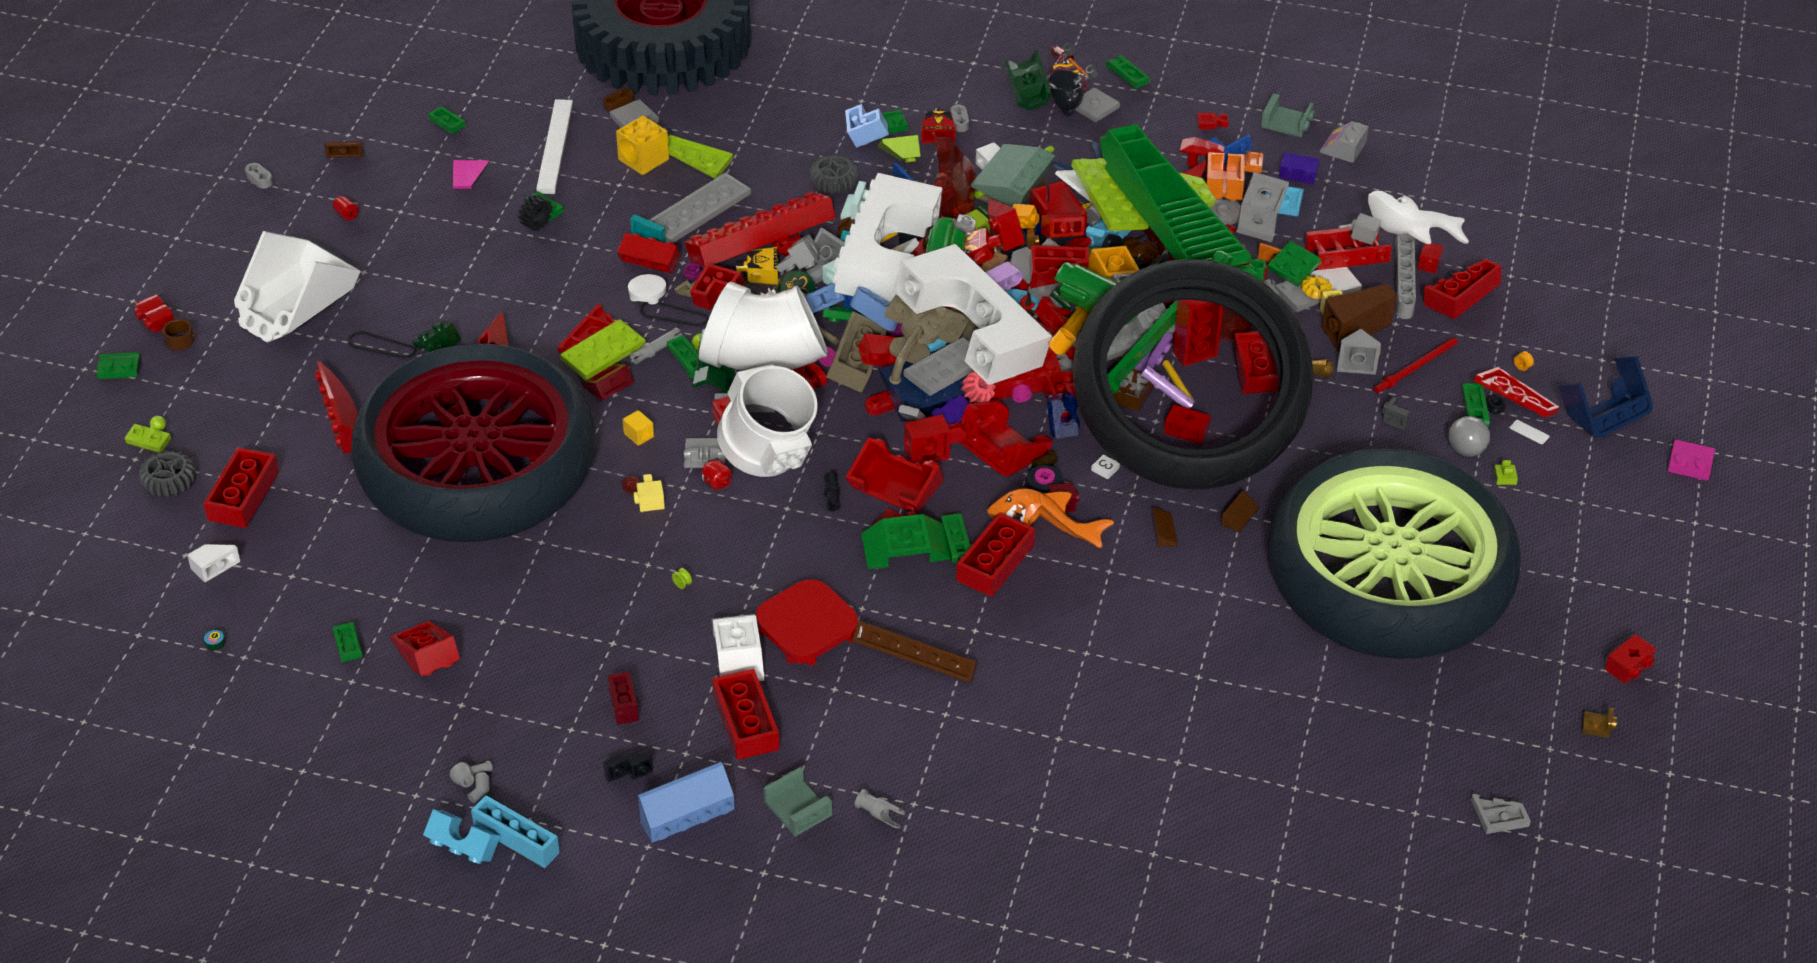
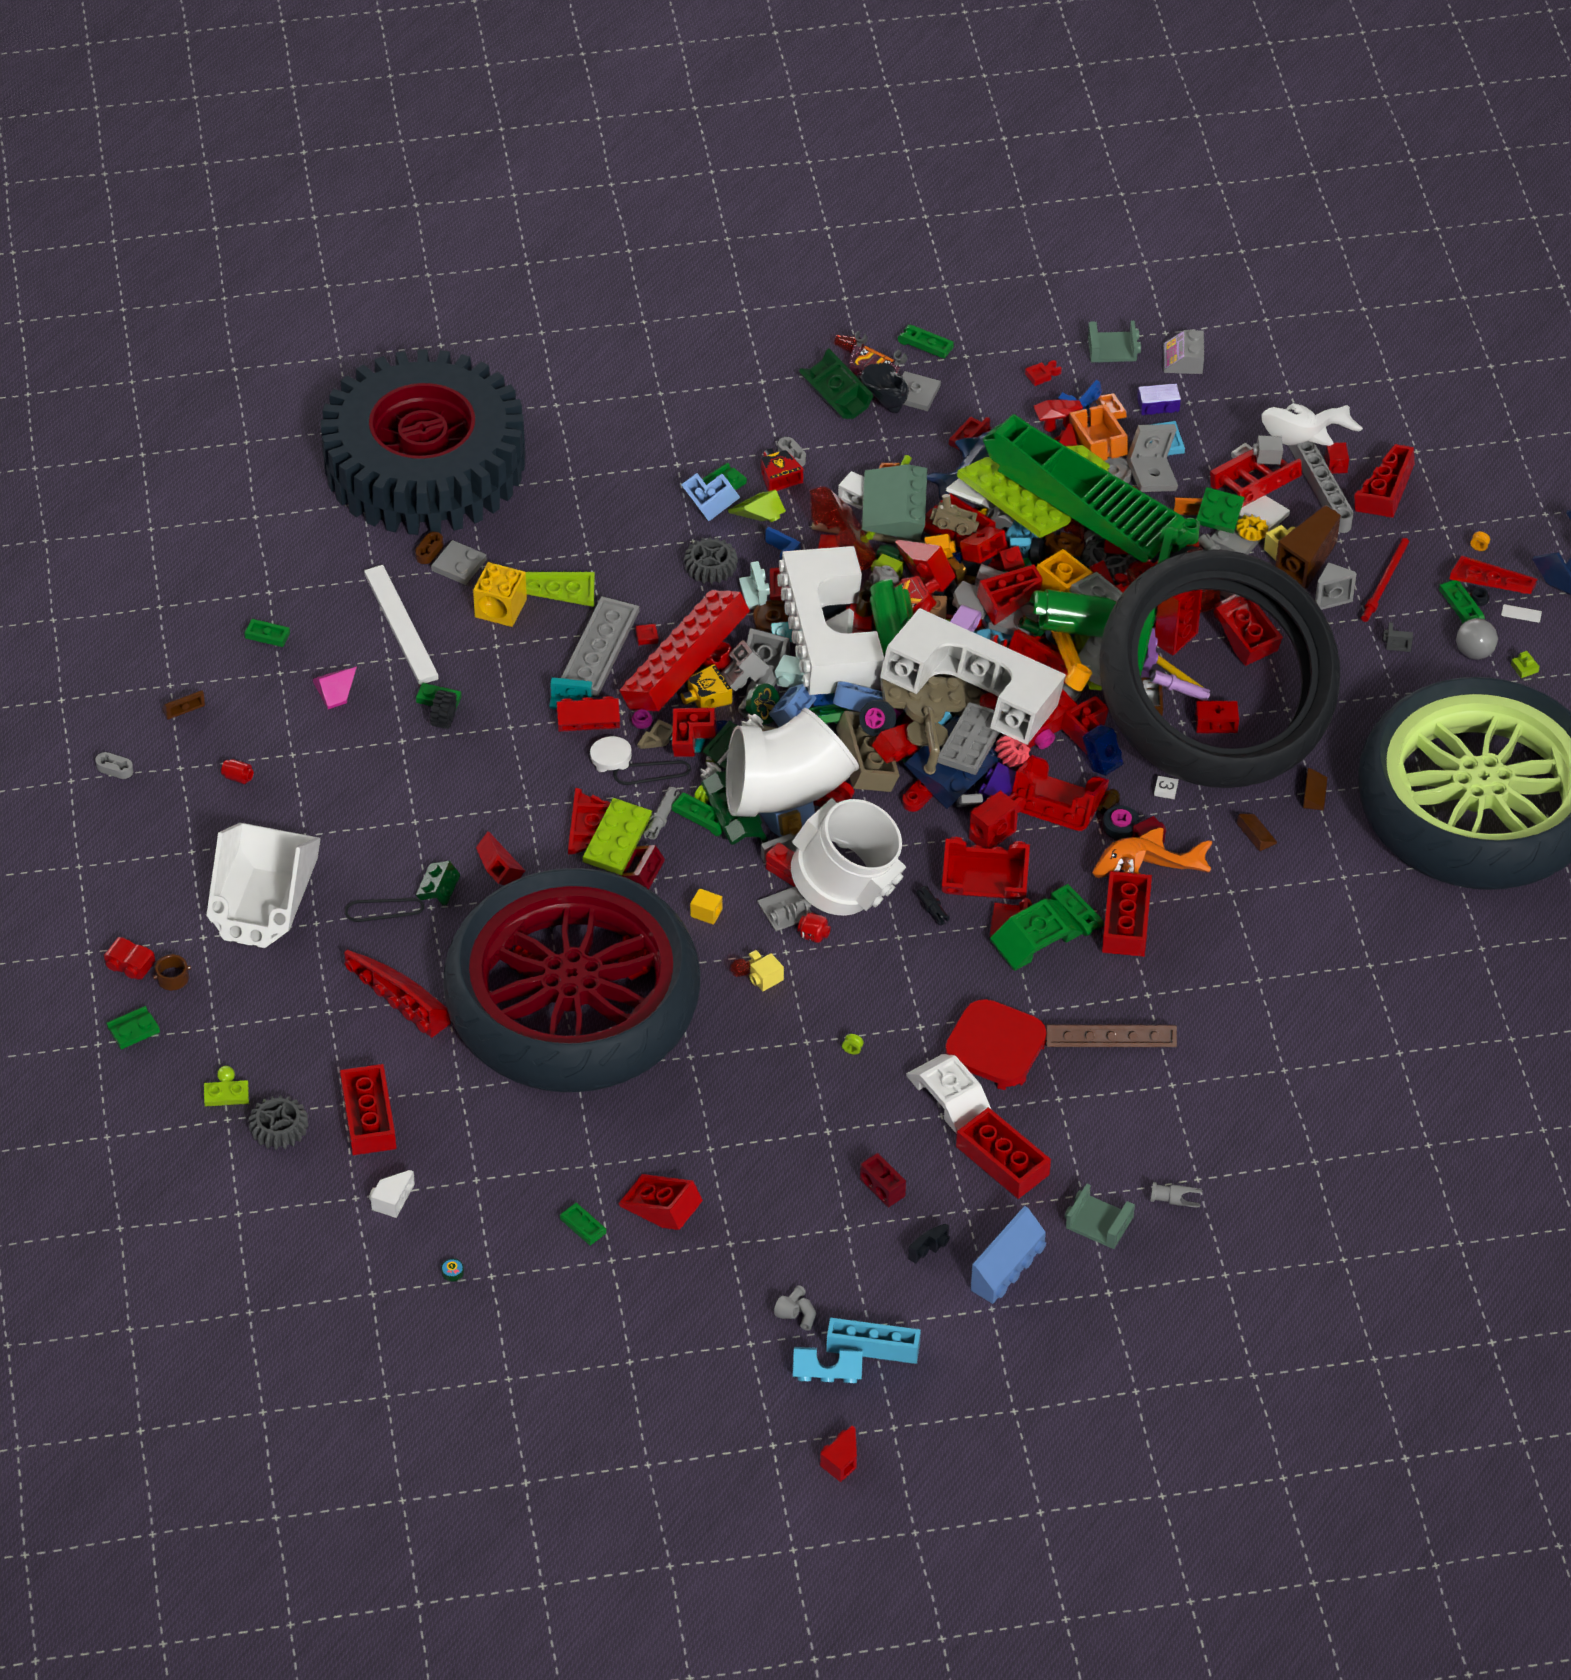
camera: 25 degrees left, 5 degrees up
(419, 921) = (841, 1456): none -> red slope
(744, 210) = (647, 634): none -> red tile
(873, 321) = (870, 719): none -> black wheel
(1048, 196) = (954, 518): none -> dark tan brick
(1081, 240) = (1012, 559): none -> red plate

